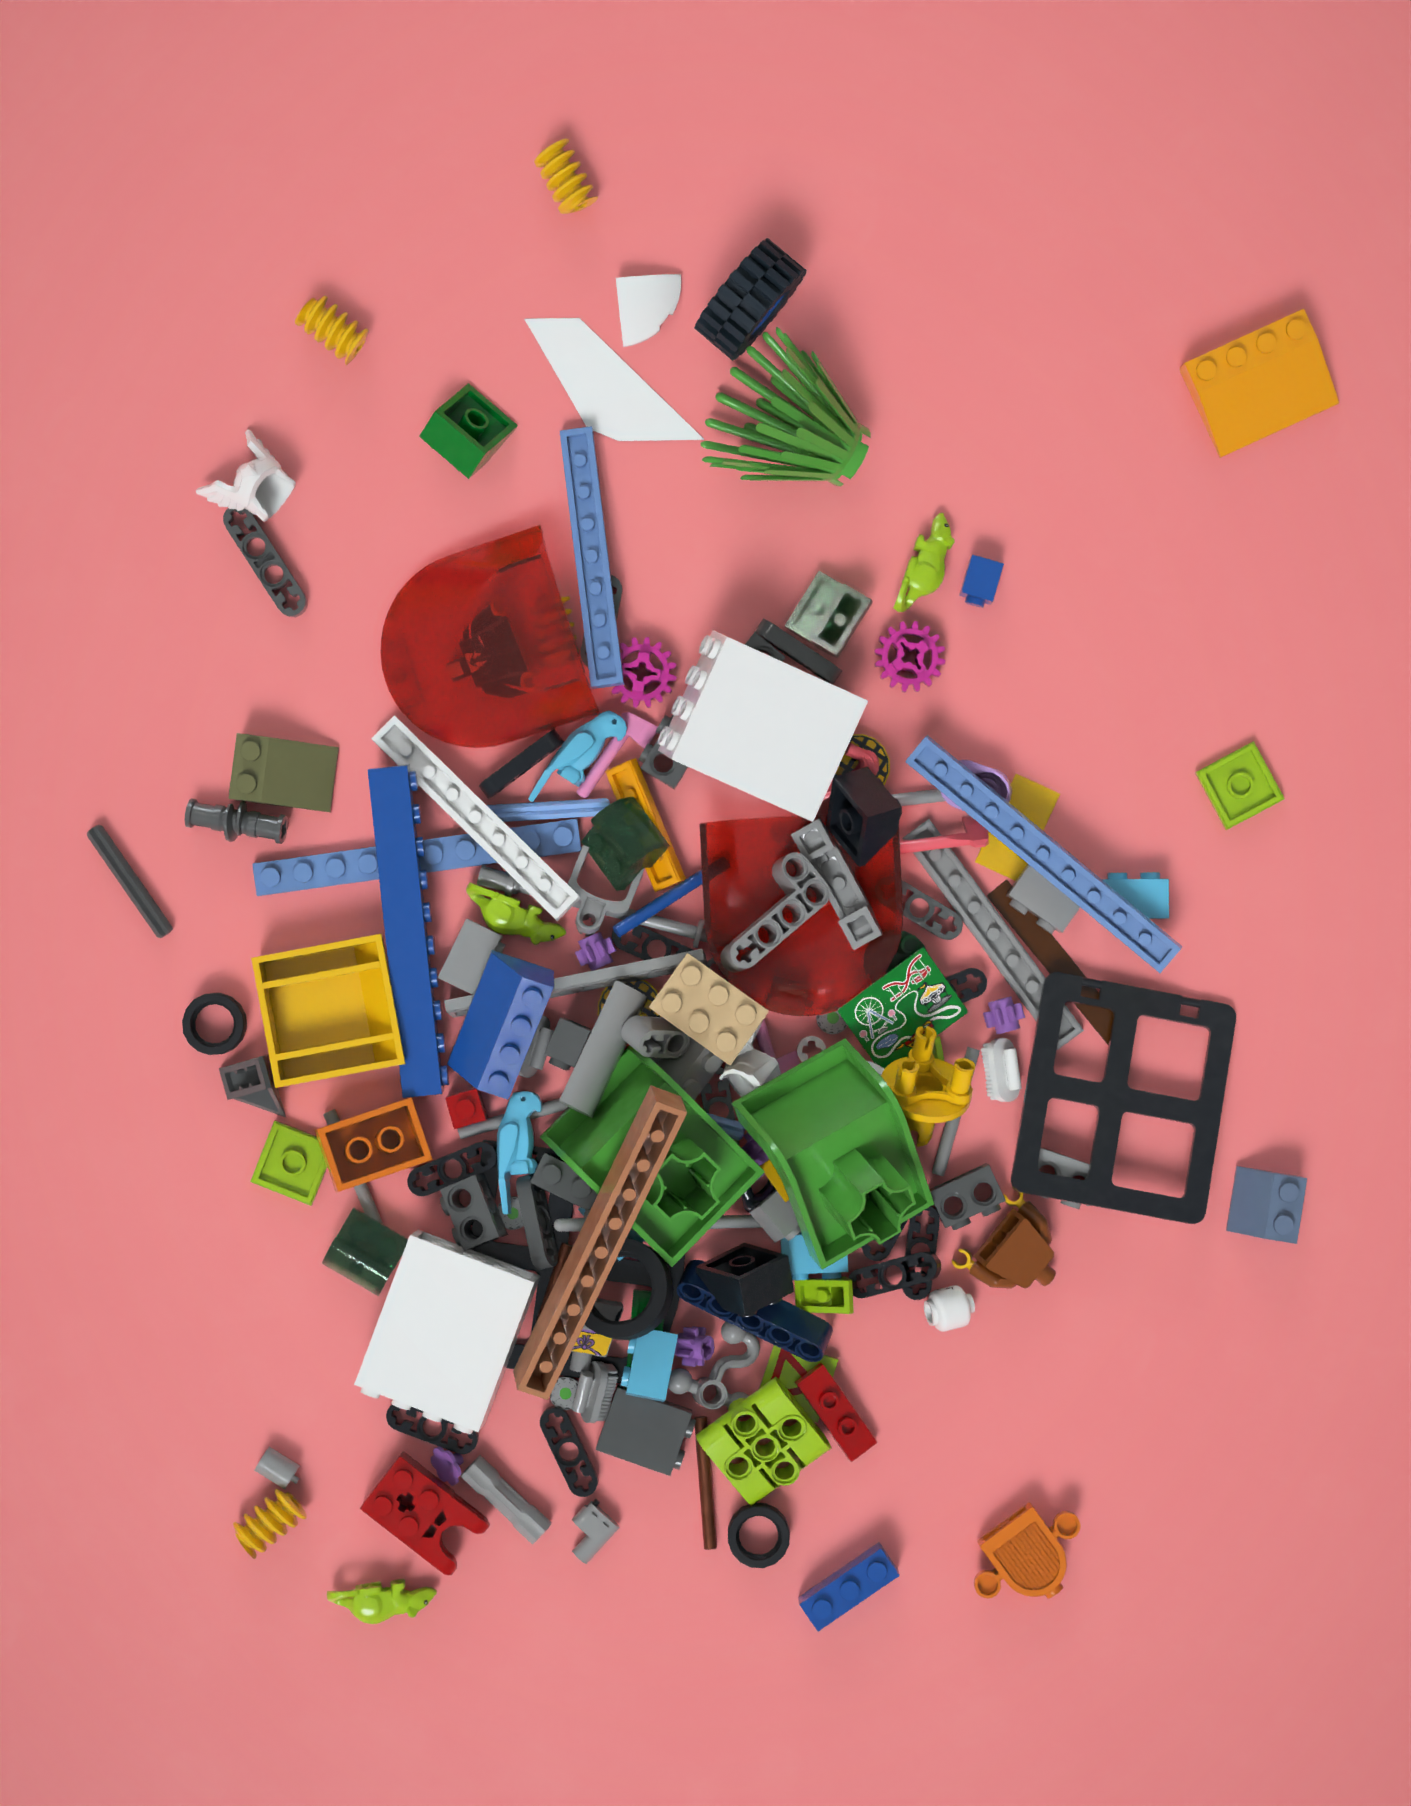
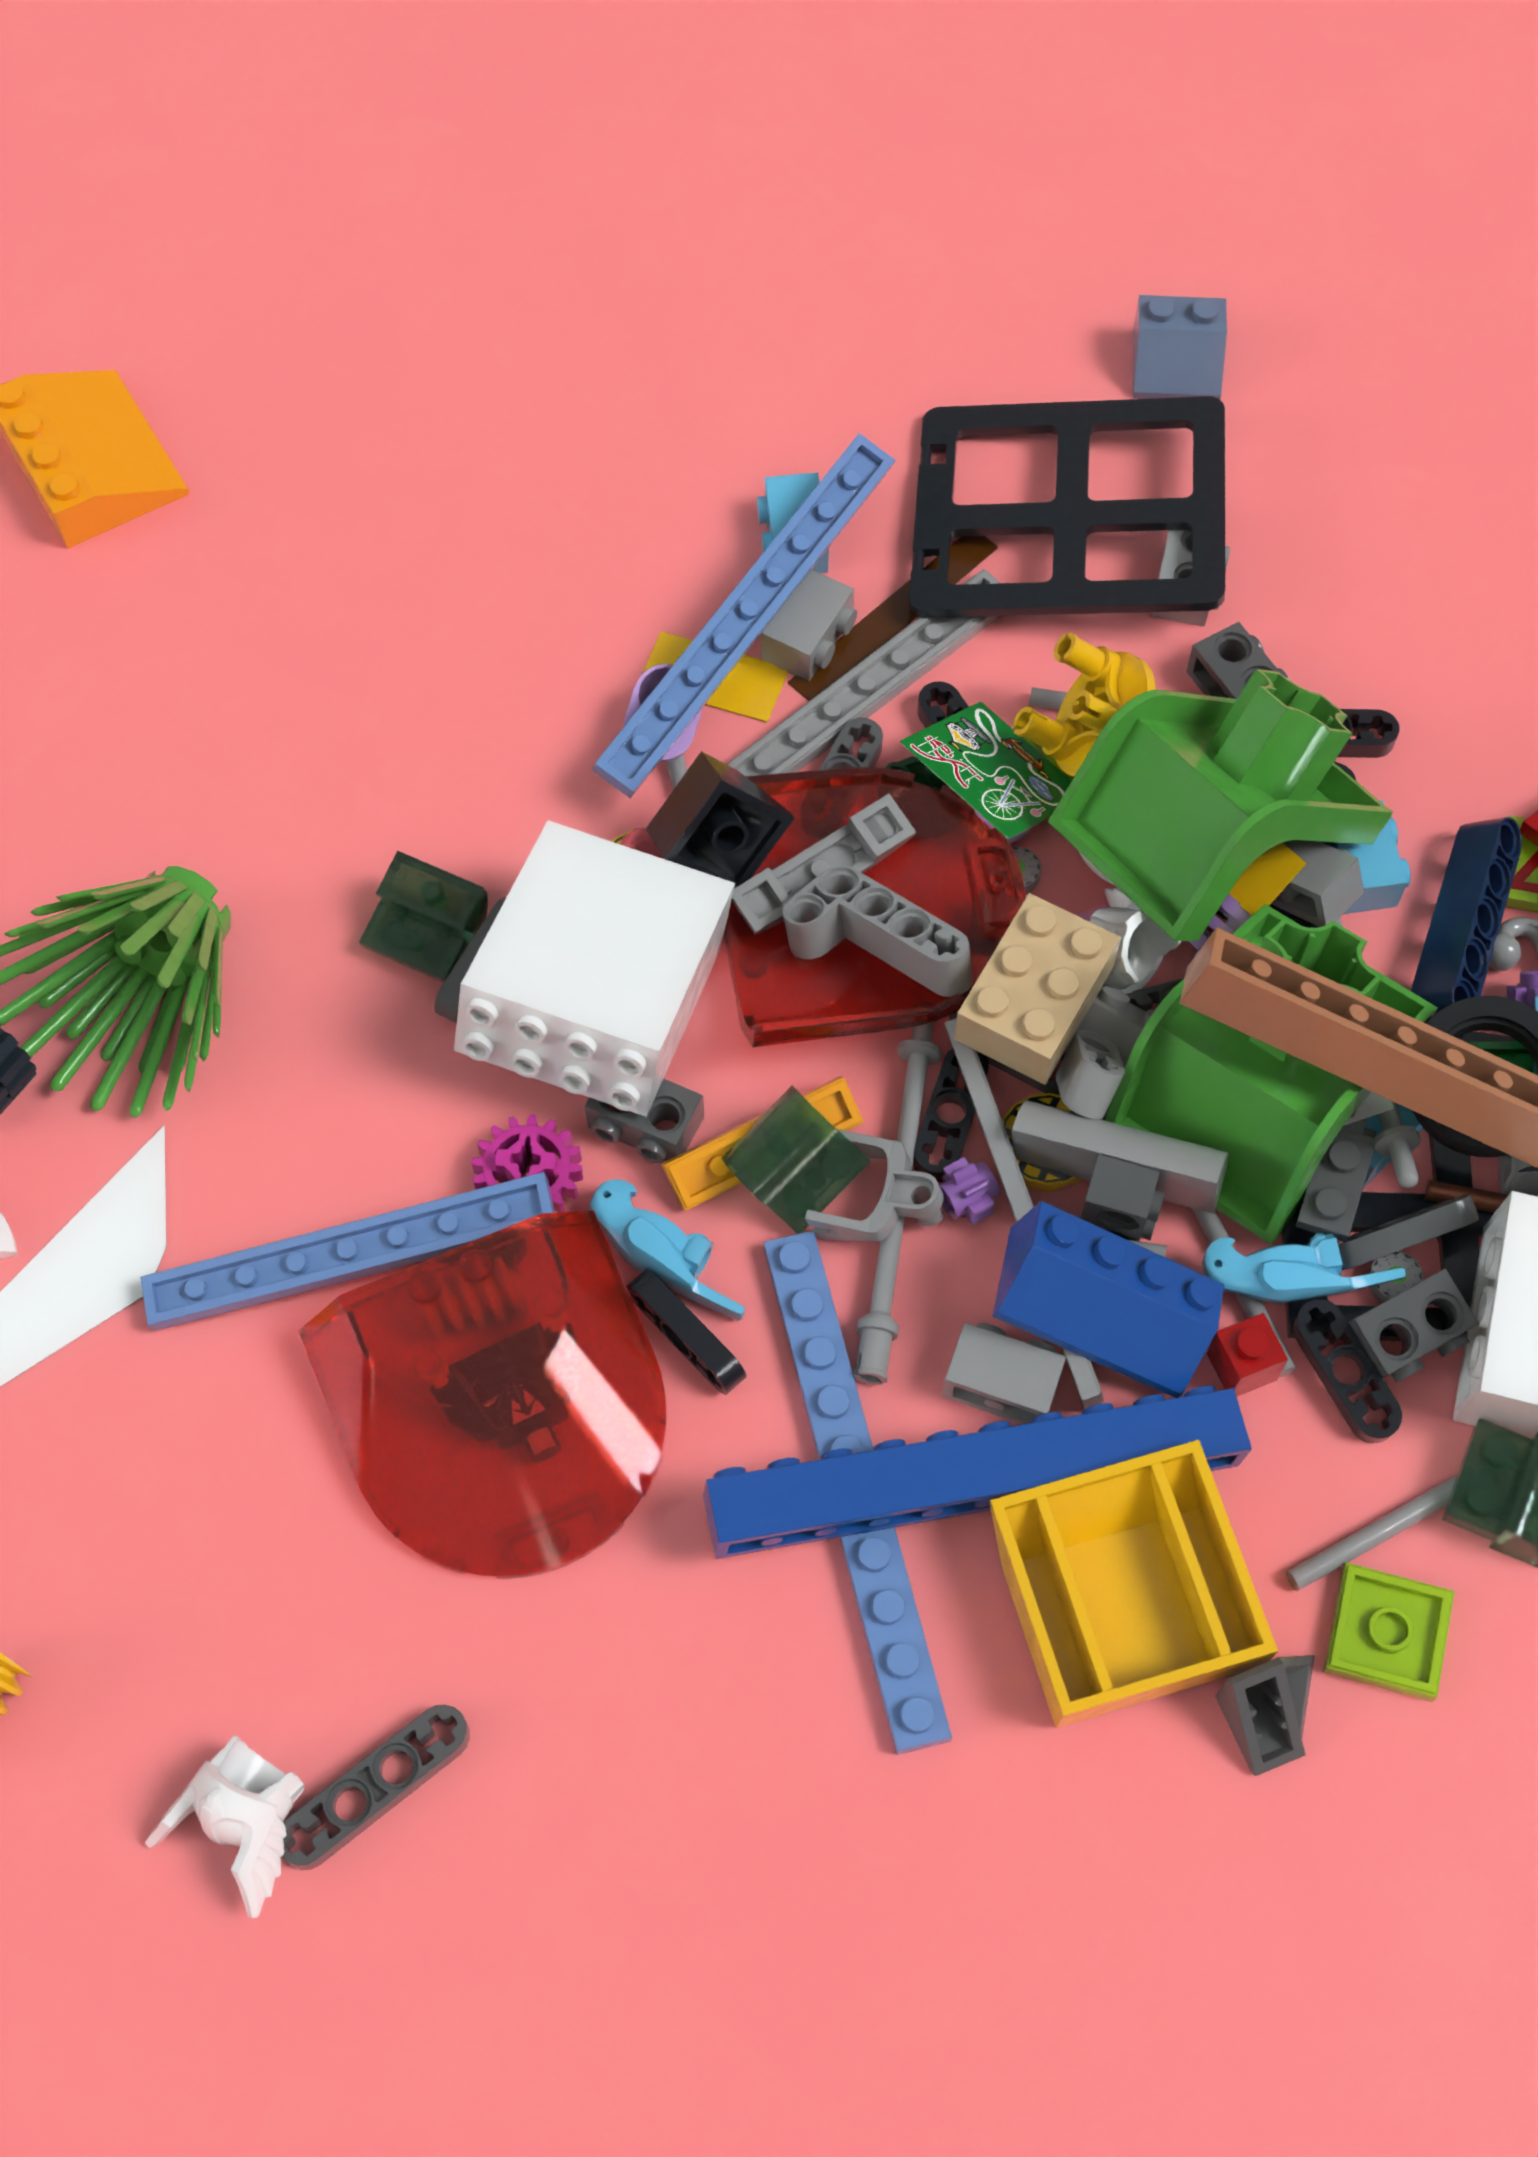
camera: 95 degrees left, 25 degrees down
(129, 881) = (954, 1971): dark grey axle -> none
(200, 1044) = (1216, 1760): black tyre -> none
(236, 822) = (828, 1782): dark grey piece -> none
(283, 772) = (736, 1716): olive slope -> none
(373, 1144) = (1339, 1487): orange brick -> none
(467, 430) = (150, 1468): green slope -> none
(477, 819) = (780, 1381): white plate -> none
(507, 918) = (929, 1320): lime animal -> none
(549, 809) = (756, 1294): light blue axle -> none
(638, 729) = (626, 1165): bright pink piece -> none
(658, 904) = (875, 1099): blue bar -> none
(747, 1278) = (1425, 922): black slope -> none
(804, 1042) = (1069, 878): white bush -> none
(825, 1295) = (1423, 827): lime slope -> none
(918, 1277) = (1380, 732): black beam -> none
(921, 648) = (480, 816): dark pink gear -> none
(927, 570) = (353, 807): lime animal -> none
(949, 1308) = (1401, 684): white head -> none
(975, 836) = (729, 714): coral piece -> none
(981, 581) = (365, 738): blue brick -> none
(1001, 1070) = (1037, 664): white piece -> none
(1004, 1015) = (979, 655): medium lavender gear -> none
(1015, 1250) = (1304, 609): dark orange torso -> none
(1239, 785) = (630, 432): lime tile -> none

